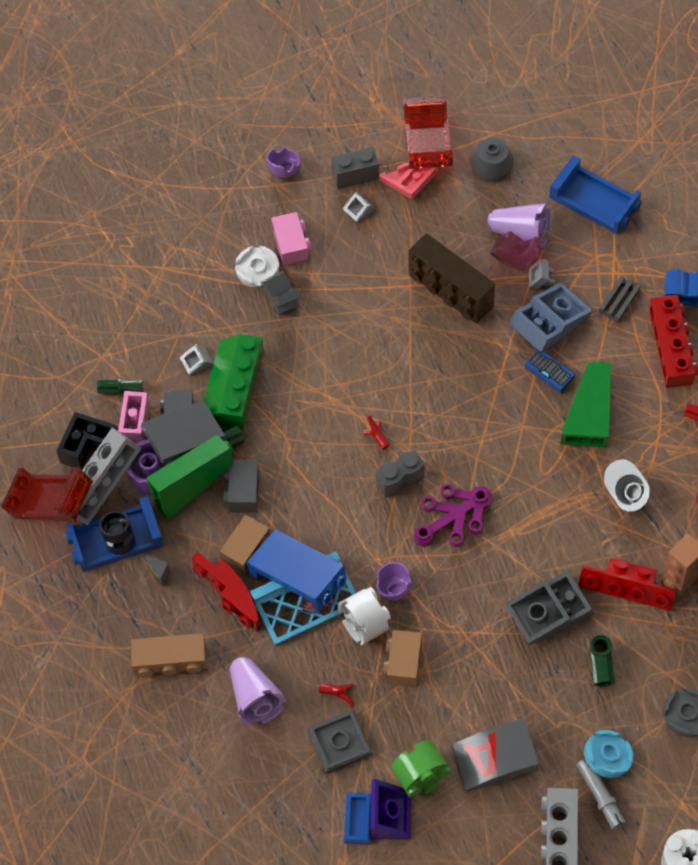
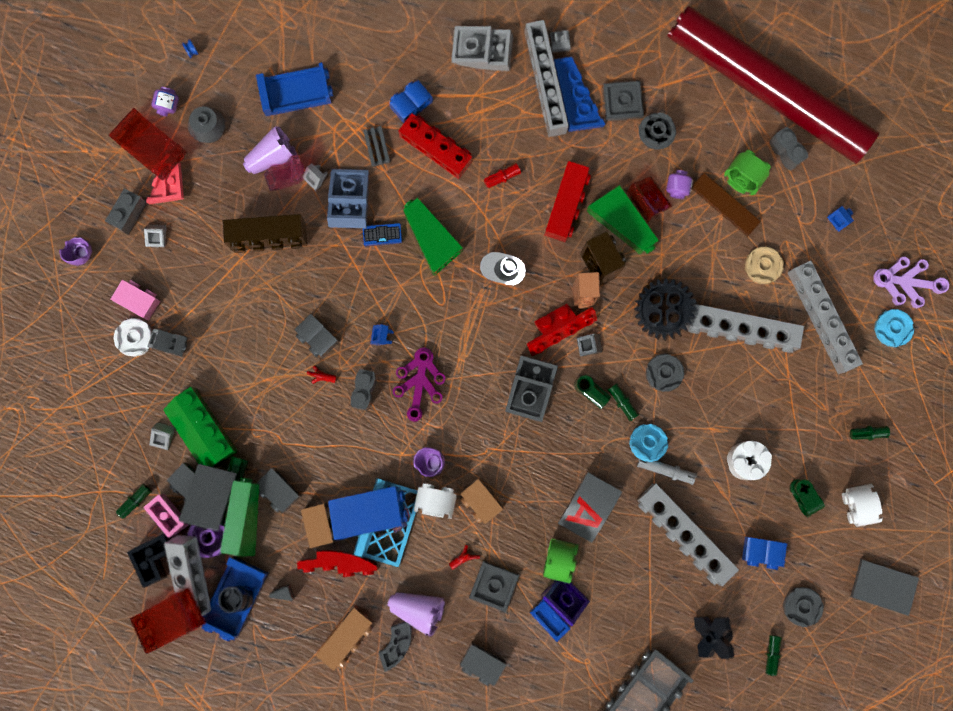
camera: 55 degrees left, 20 degrees up
(203, 708) = (397, 646): none -> dark grey tile
(259, 791) = (482, 664): none -> dark grey brick
(406, 397) = (316, 336): none -> dark grey brick
(461, 444) = (379, 335): none -> blue tile
(476, 114) = (165, 101): none -> head
(540, 93) = (190, 49): none -> blue bush
(621, 698) = (623, 402): none -> dark green pin
(642, 624) = (589, 344): none -> dark grey slope

